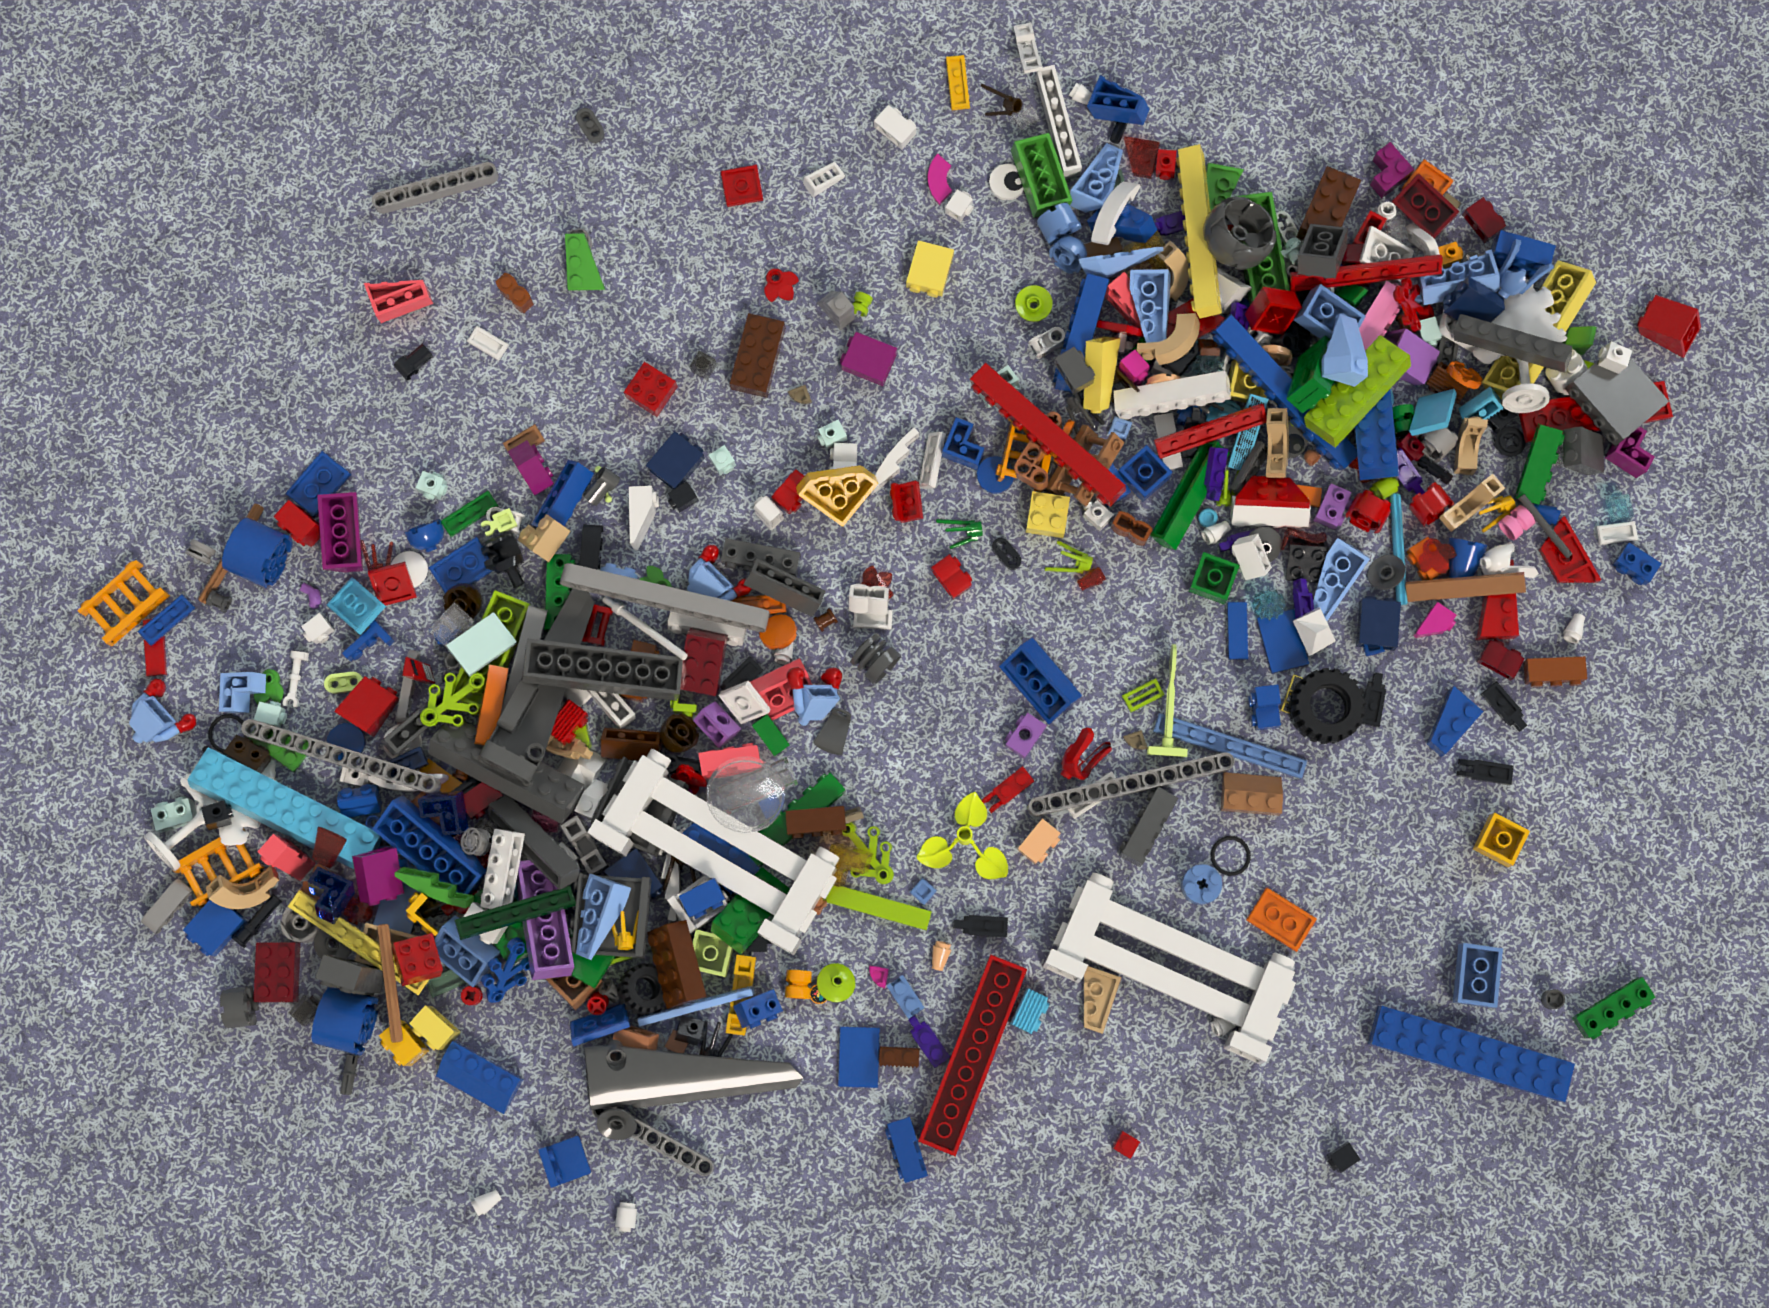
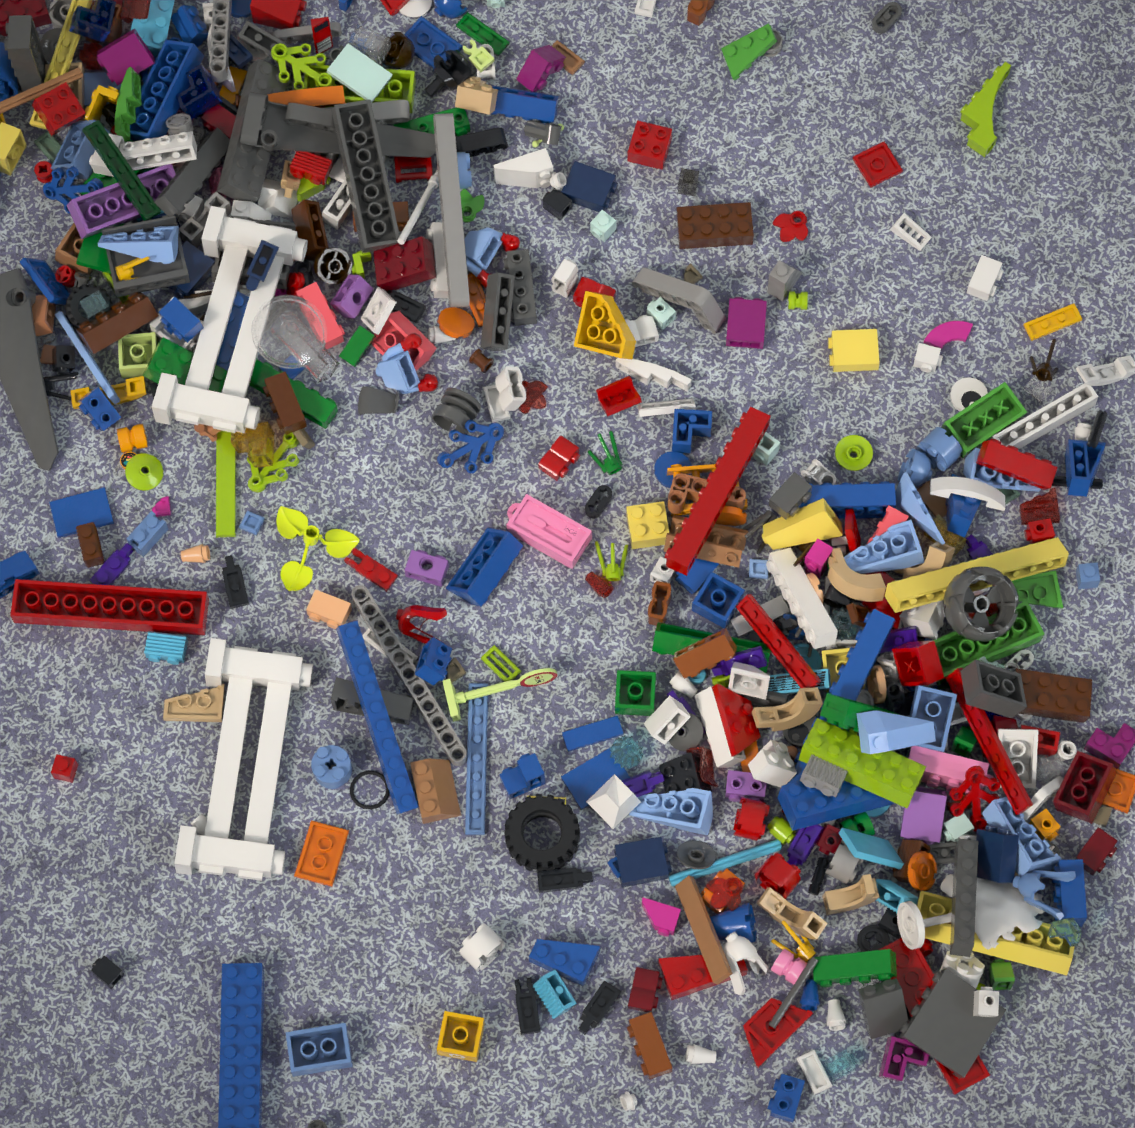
camera: 70 degrees right, 10 degrees down
(651, 981) = (93, 304): none -> clear light blue panel
(663, 487) = (558, 180): none -> white plate
(670, 799) = (261, 264): none -> dark blue brick
(721, 72) = (979, 112): none -> lime arch
(822, 409) = (683, 294): none -> light grey beam
(908, 633) = (473, 445): none -> blue plant
(1025, 609) = (548, 530): none -> bright pink piece
(1083, 78) = (1097, 429): none -> black axle
(1100, 159) = (1017, 464): none -> red brick
(1127, 756) = (433, 661): none -> blue brick
(1174, 825) = (377, 717): none -> blue brick
(1200, 500) = (705, 653): none -> dark orange brick
(1221, 136) = (1088, 575): none -> medium blue brick
(1239, 468) = (748, 680): none -> white slope
(1325, 472) = (773, 764): none -> white brick
(1363, 429) = (823, 776): none -> light grey brick
(1423, 795) = (482, 947): none -> white brick
(1485, 741) = (554, 994): none -> medium azure brick
(1563, 266) = (1066, 929): none -> clear light blue panel
(1572, 497) = (835, 1016): none -> white cone
(1600, 706) = (628, 1101): none -> white plate
(1670, 324) = (1050, 1066): red slope -> none

